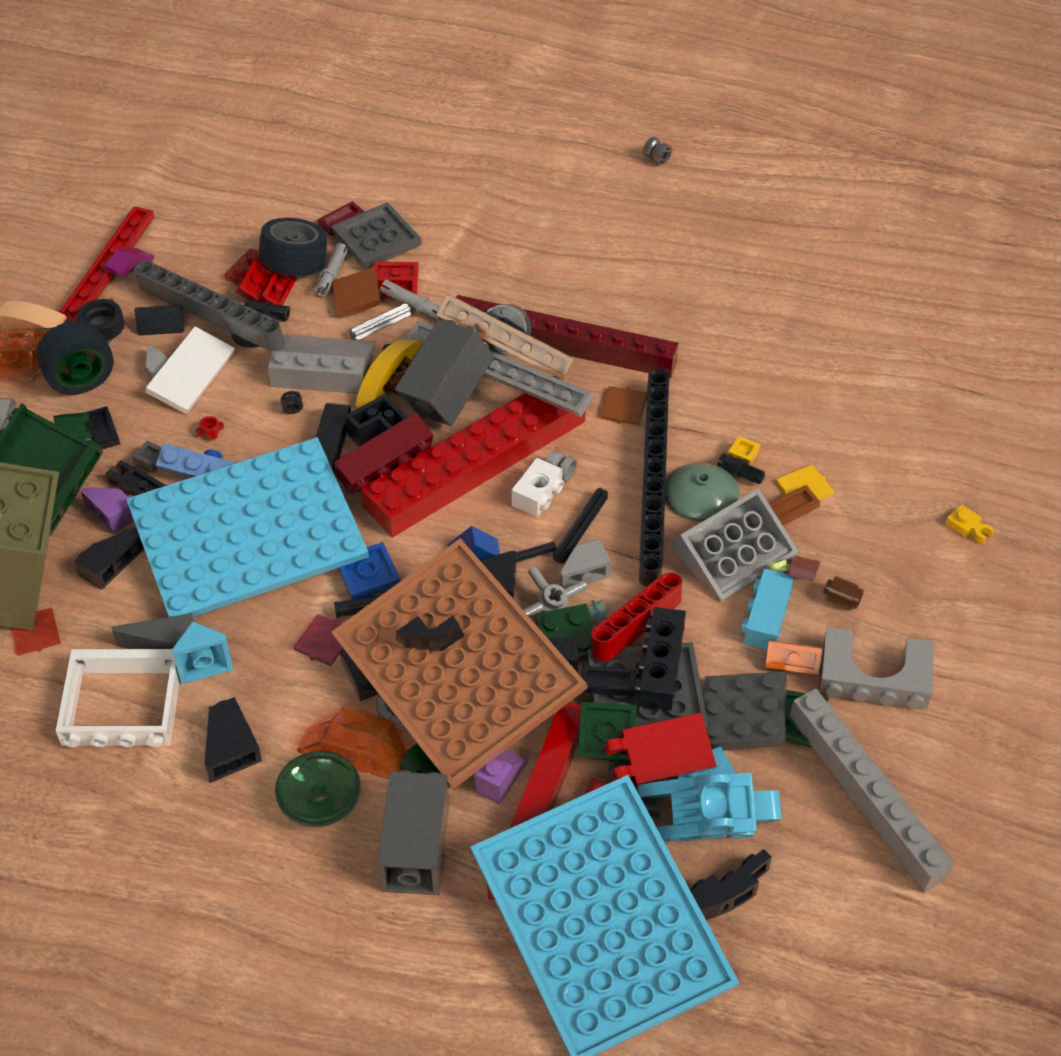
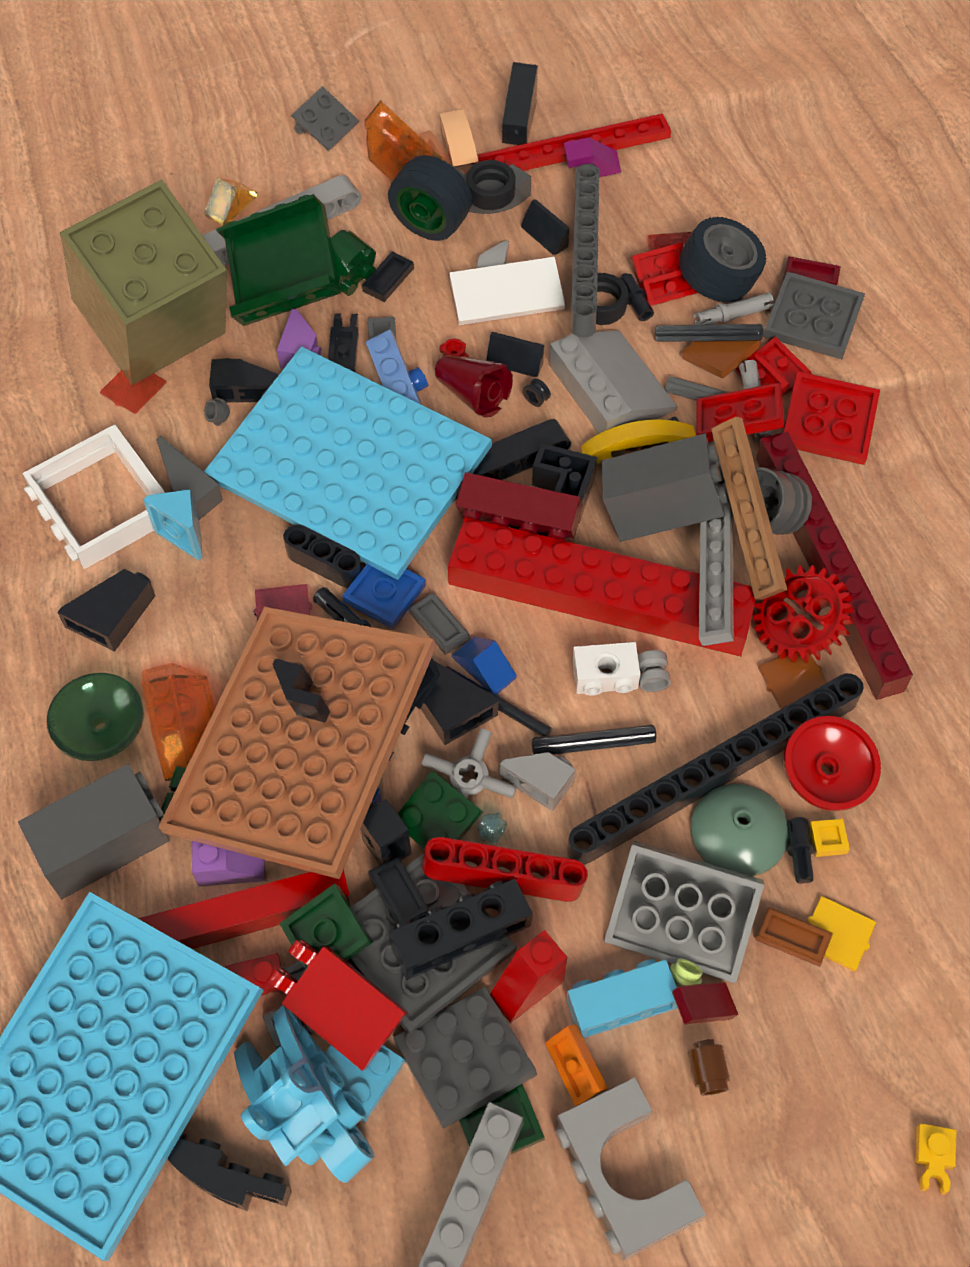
camera: 55 degrees right, 10 degrees up
(40, 268) = (520, 104): none -> black slope
(113, 591) = (216, 411): none -> dark grey plate
(248, 396) = (517, 354): none -> black slope
(249, 427) = (476, 382): none -> dark red cone
(307, 589) = (316, 545): none -> black beam
(339, 289) = (714, 332): none -> black axle
(414, 556) = (439, 623): none -> dark grey tile
(417, 309) = (757, 406): none -> red tile
(461, 272) = (831, 417): none -> red plate
(588, 348) = (822, 593): none -> red gear
(701, 416) = (842, 748): none -> red dish
(722, 637) = (530, 976): none -> red slope

